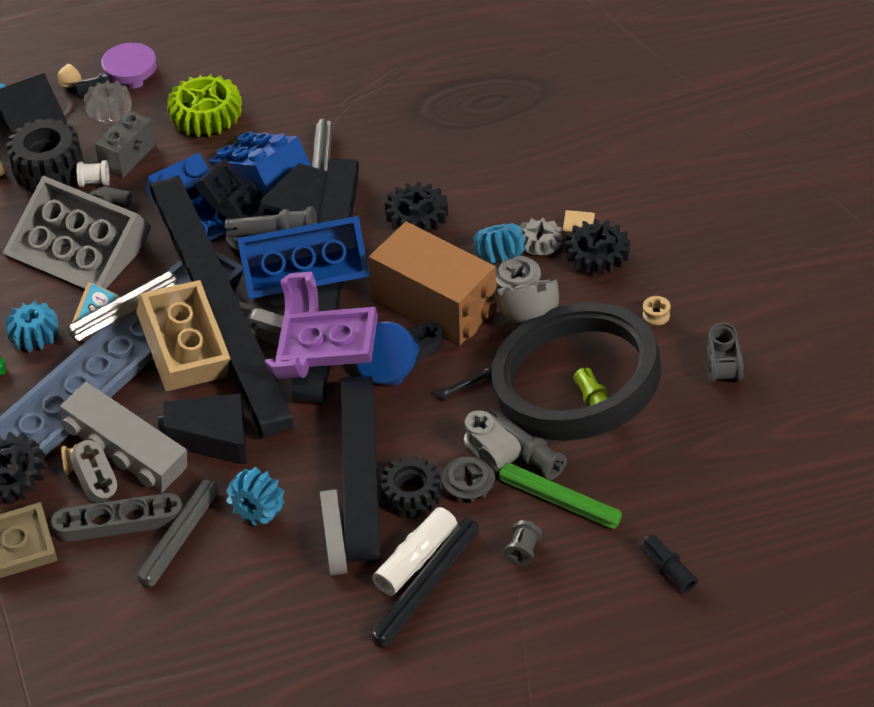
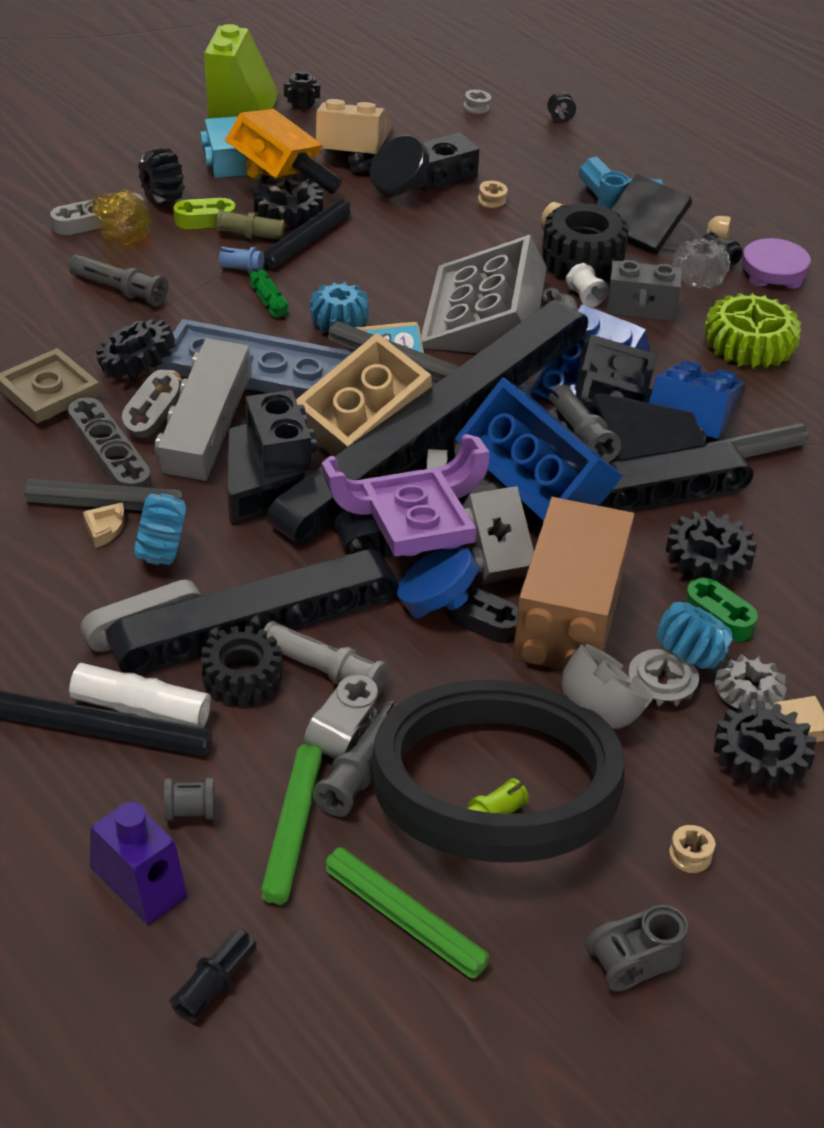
camera: 65 degrees right, 5 degrees down
(202, 391) = (279, 432): none -> black brick
(209, 540) = (104, 523): none -> tan tile
(354, 292) = (504, 515): none -> light grey brick
(435, 432) = (335, 662): none -> light grey pin
(443, 393) = (419, 663): black hinge -> none
(467, 225) = (724, 606): none -> green beam
(479, 472) = (286, 706): dark grey gear -> none
(571, 578) = (129, 847): none -> dark purple torso
(652, 458) = (407, 912): none -> bright green axle

